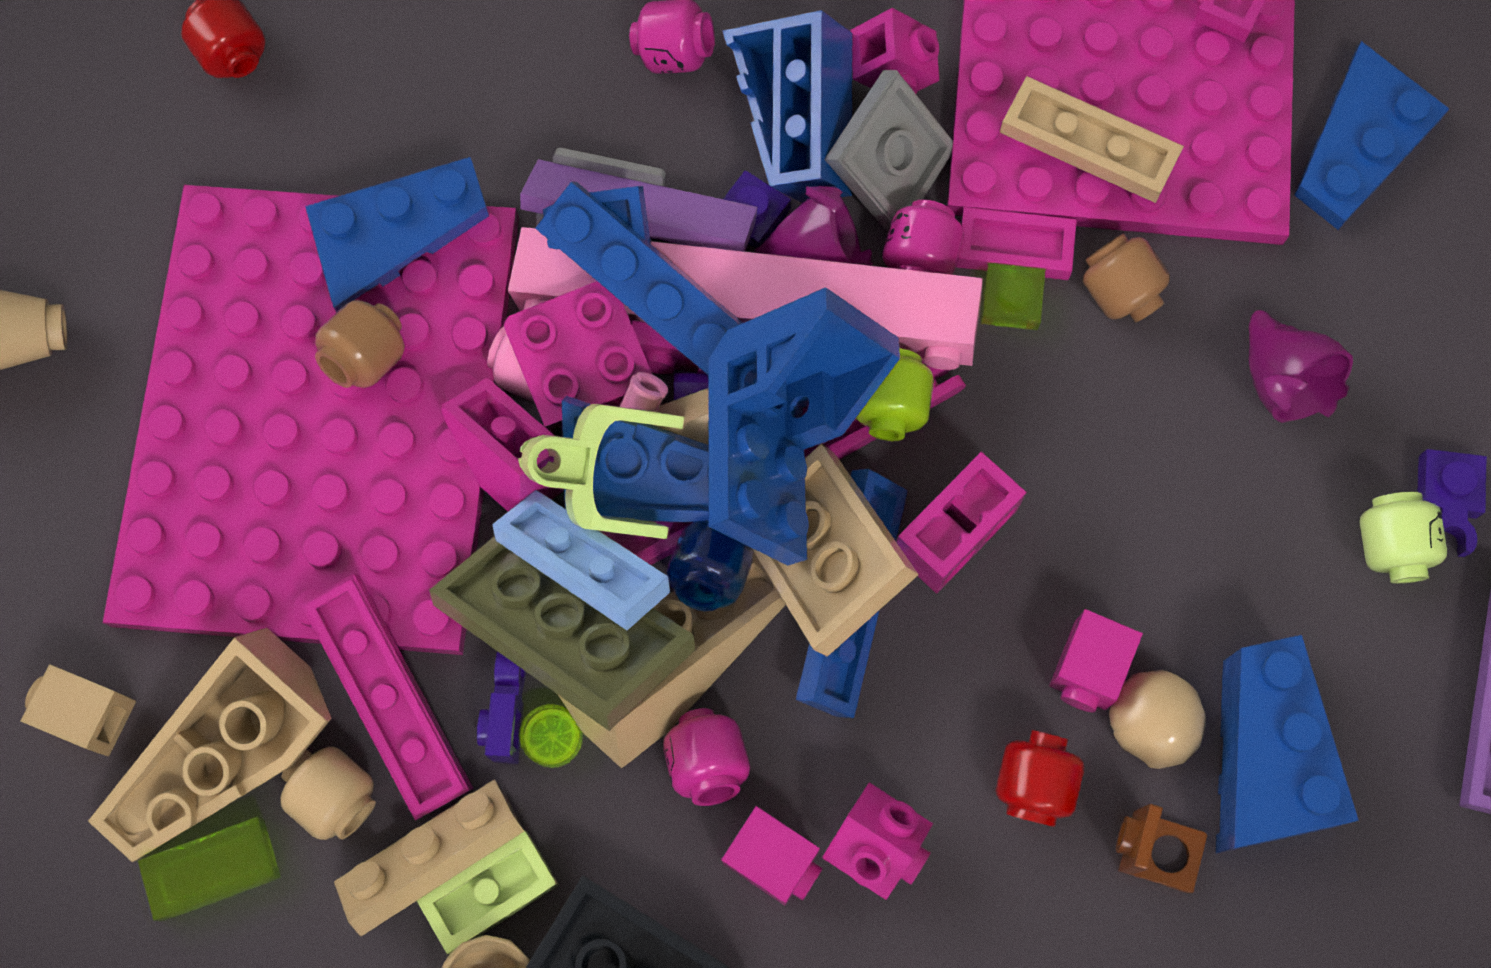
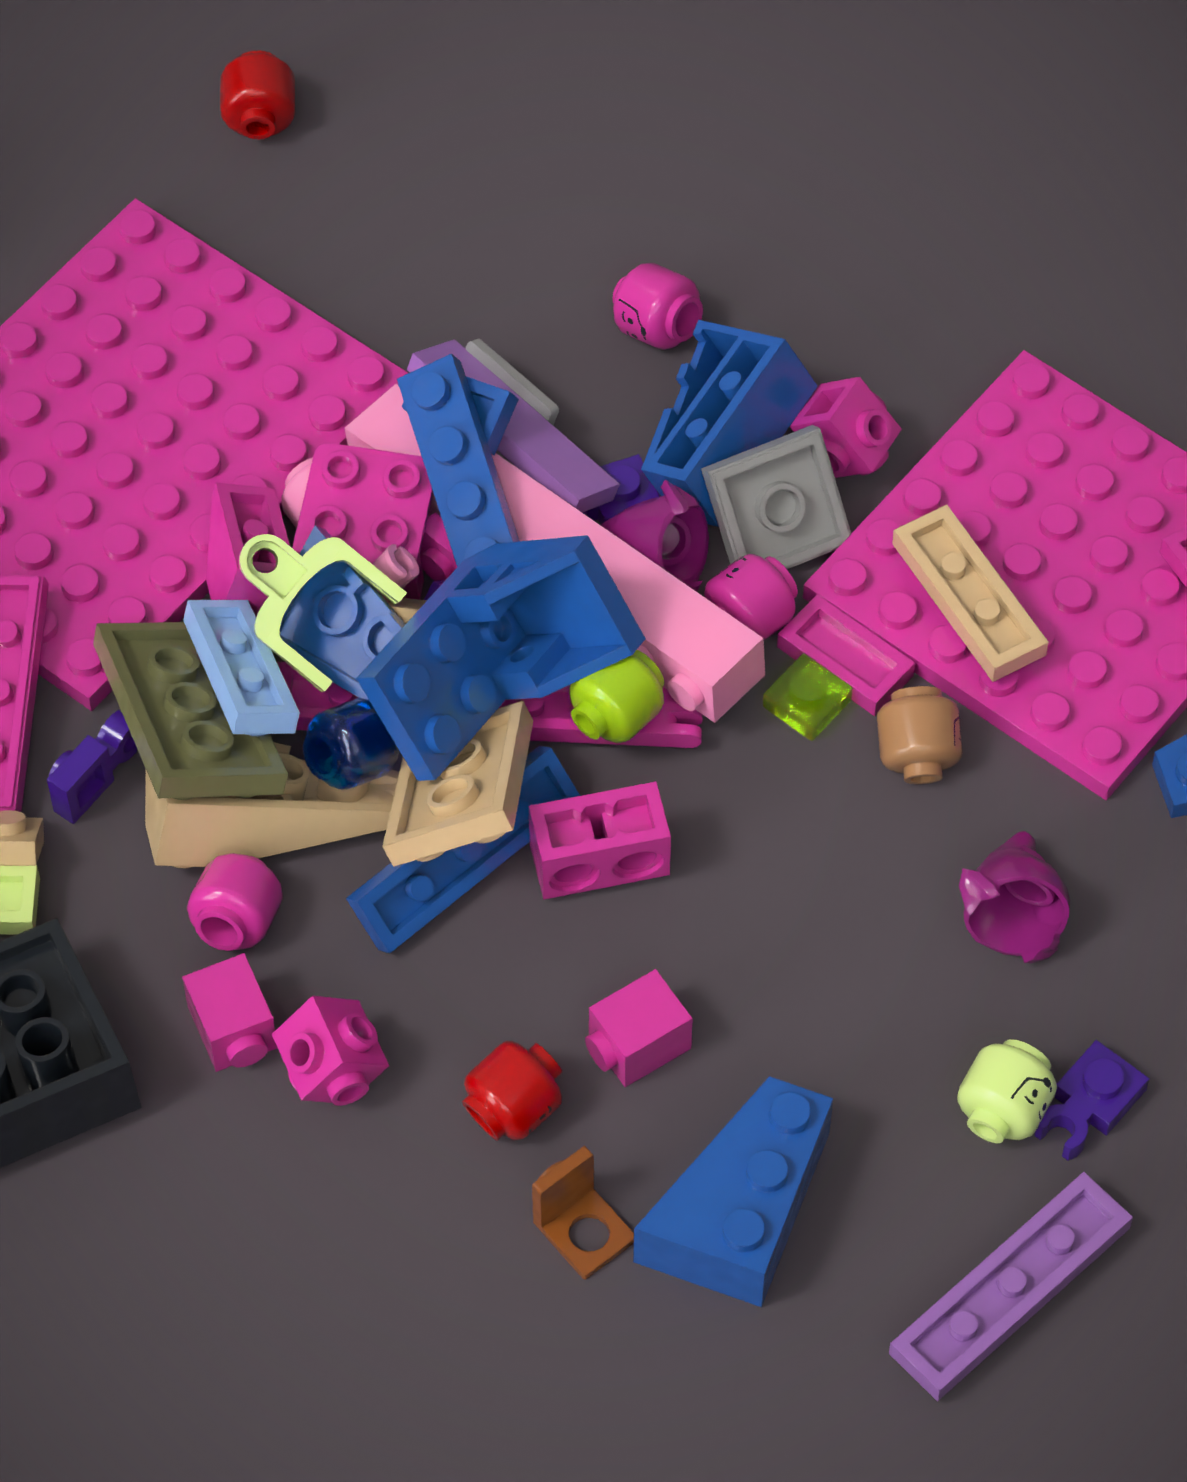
camera: 30 degrees right, 15 degrees down
(359, 344) = (184, 398): medium nougat head -> none
(384, 227) = (281, 320): blue wing -> none
(550, 736) = (116, 815): clear neon green tile -> none
(1158, 718) = (664, 1115): tan hair -> none

